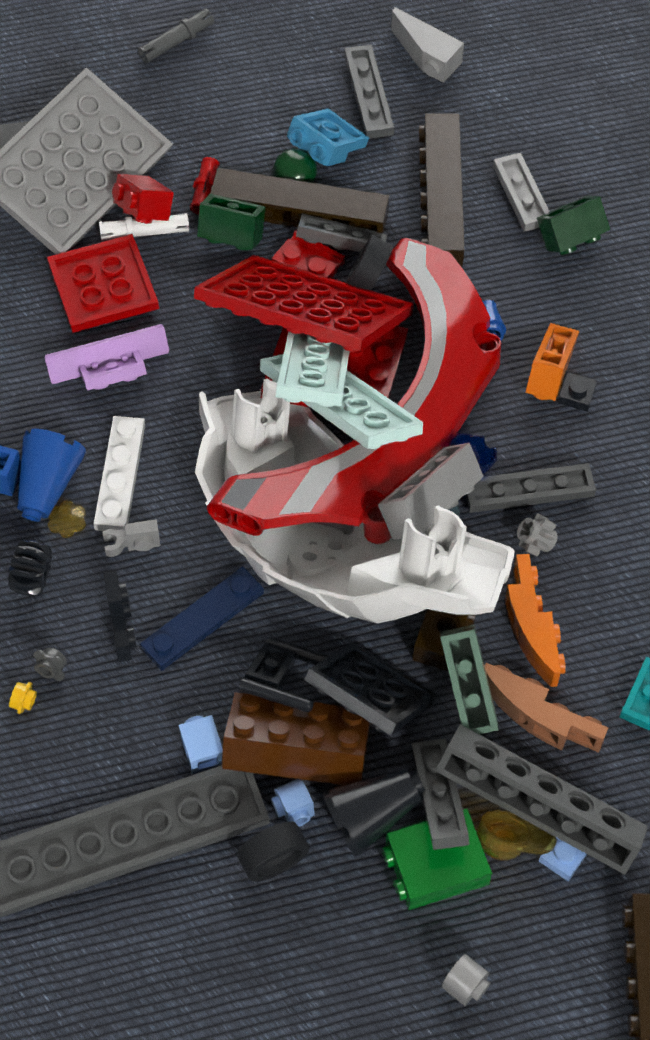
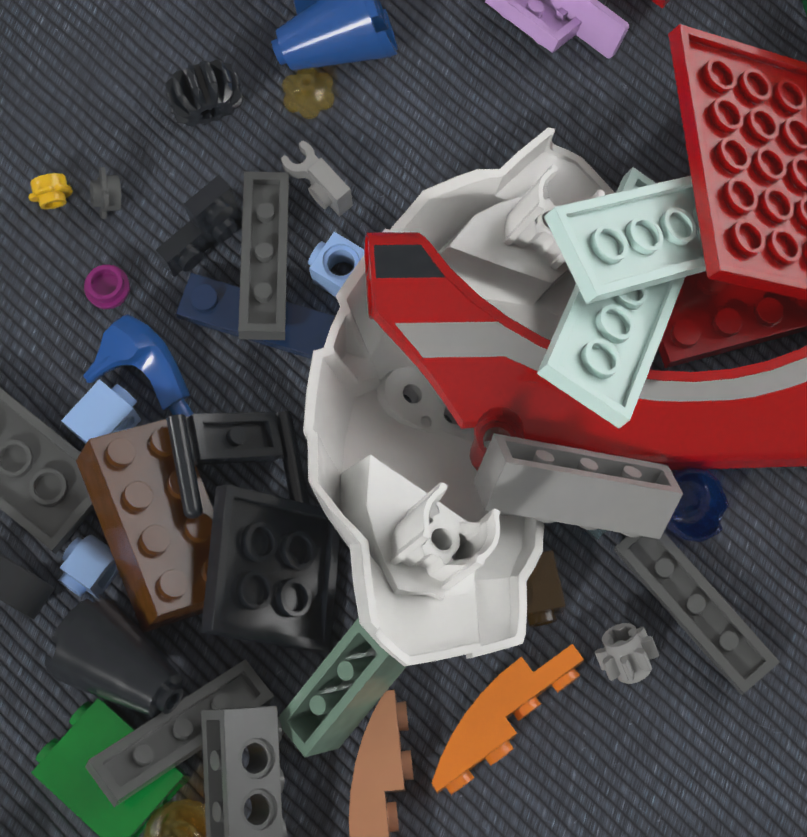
camera: 65 degrees right, 15 degrees up
(112, 698) = (107, 286): none -> magenta plate
(119, 473) = (402, 110): white plate -> none
(165, 593) = (264, 256): none -> dark grey plate
(168, 695) = (136, 344): none -> blue animal
(206, 544) = (328, 254): none -> light blue brick

